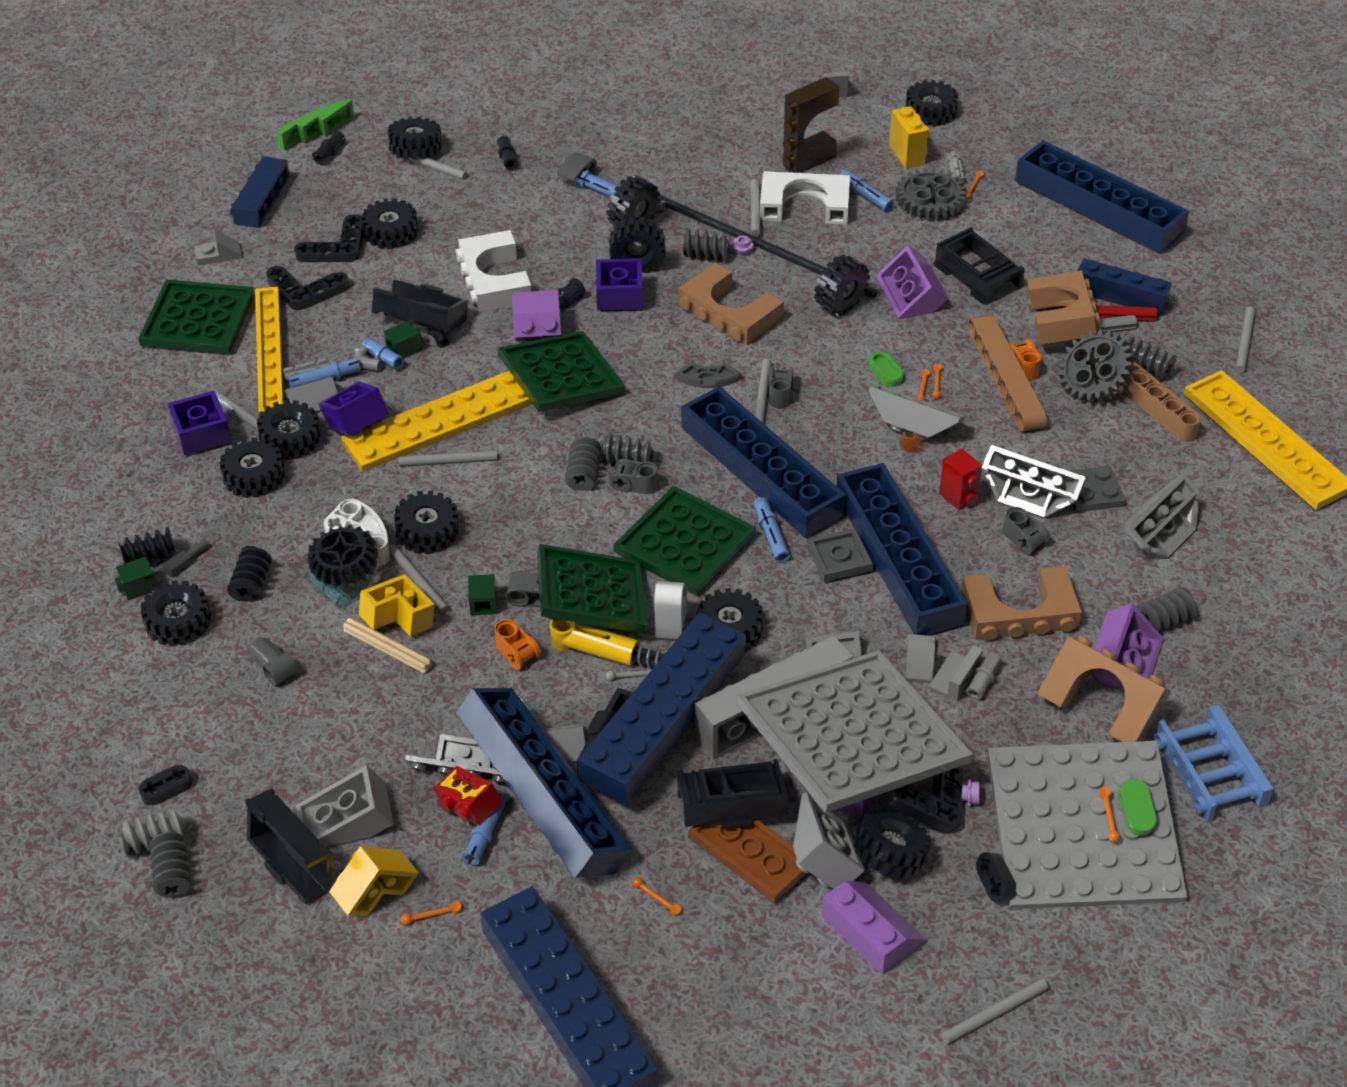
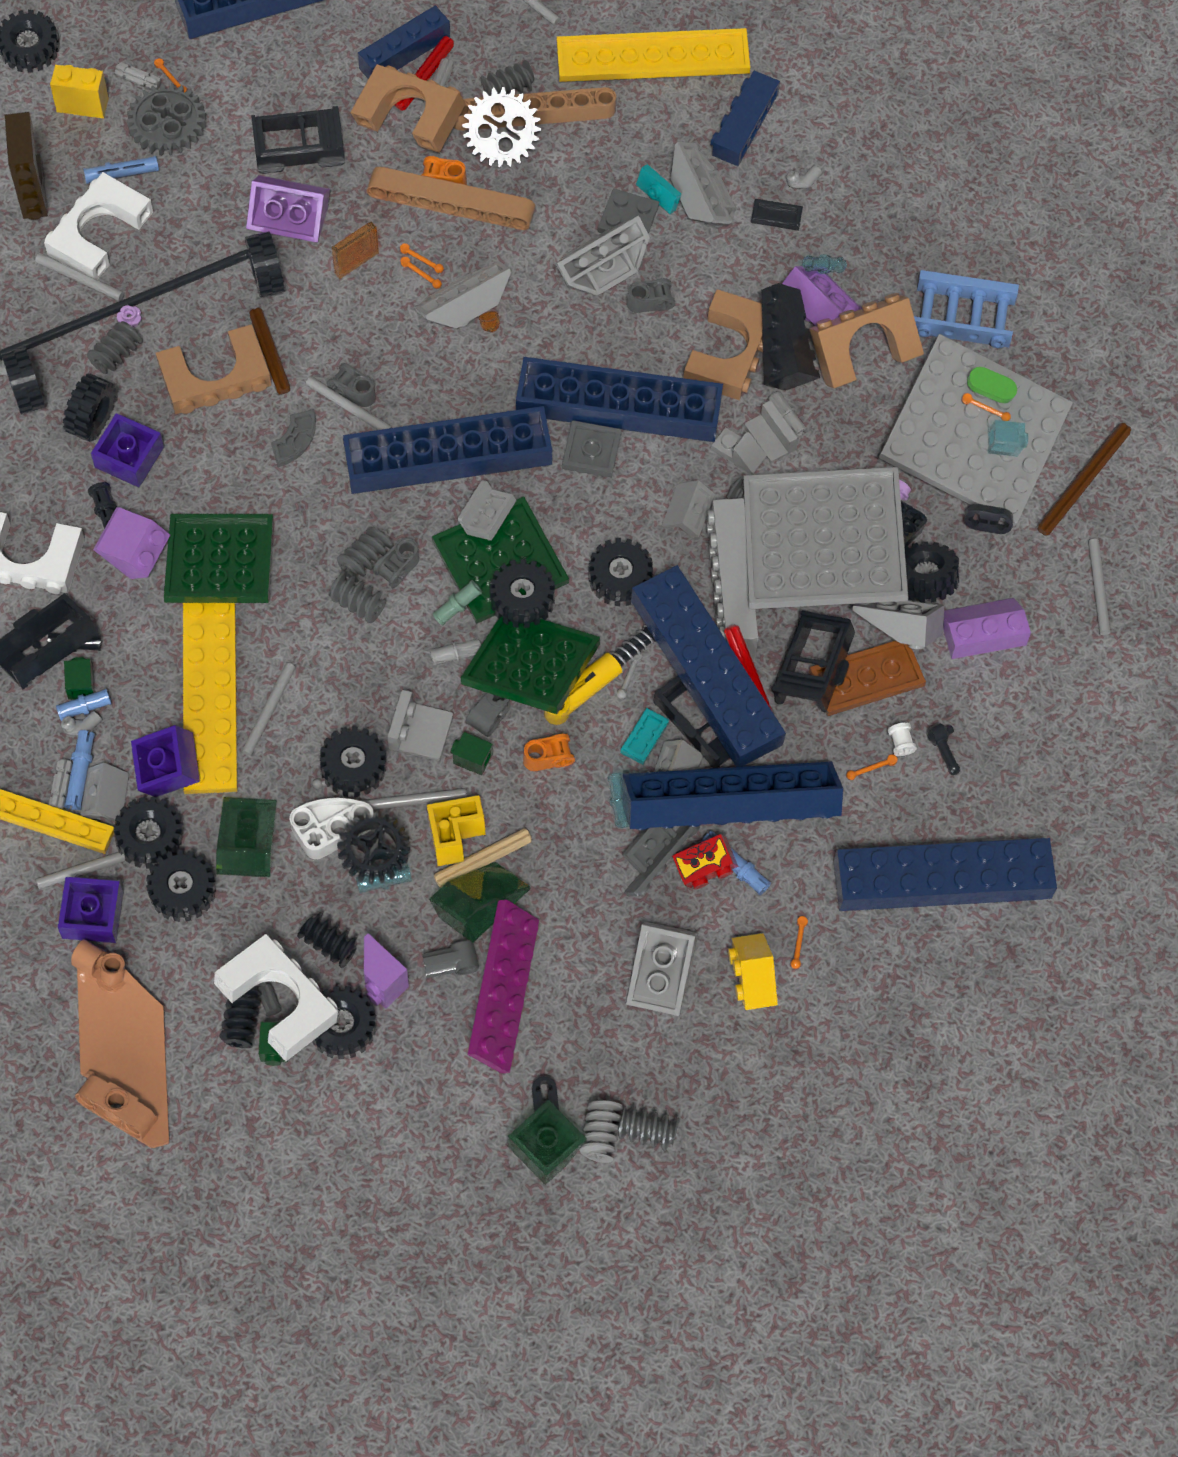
camera: 65 degrees left, 20 degrees up
(87, 499) = (121, 1047): none -> nougat panel
(114, 791) = (546, 1142): none -> clear green slope
(165, 575) = (267, 962): none -> white arch
(230, 612) = (383, 974): none -> medium lavender slope
(259, 700) = (503, 987): none -> magenta plate
(288, 847) = (687, 1023): black piece -> none
(316, 486) = (246, 837): none -> clear green slope
(337, 648) = (472, 899): none -> clear green slope
(484, 546) = (418, 728): none -> light grey bracket
(569, 541) = (454, 652): none -> light grey axle
(574, 706) = (644, 736): none -> teal plate
(619, 524) = (457, 602): none -> sand green pin
(652, 567) = (519, 608): none -> black bush
(670, 609) = (591, 607): white beam -> none
(679, 741) = (740, 649): none -> red axle
(699, 904) = (902, 739): none -> white bush
(716, 500) = (485, 511): none -> light grey bracket
(724, 935) = (939, 736): none -> black piece
(774, 330) = (269, 350): none -> reddish brown axle
(778, 548) = (499, 480): medium blue pin -> none
(885, 369) = (380, 289): bright green tile -> none
(901, 330) = (355, 250): none -> clear orange tile
(960, 479) = (573, 308): red brick -> none
(1049, 630) = (785, 339): none -> black wedge
(1087, 842) = (1007, 438): none -> clear light blue brick
(1109, 945) = (1084, 479): none -> reddish brown axle
(1135, 493) = (658, 189): none -> teal plate
(1161, 632) = (824, 264): none -> clear light blue pin
(1169, 608) = (798, 242): dark grey piece -> none
(1186, 577) = (776, 214): none -> black tile
(1241, 591) = (803, 181): none -> light grey arm
(1264, 521) = (745, 118): none -> dark blue brick

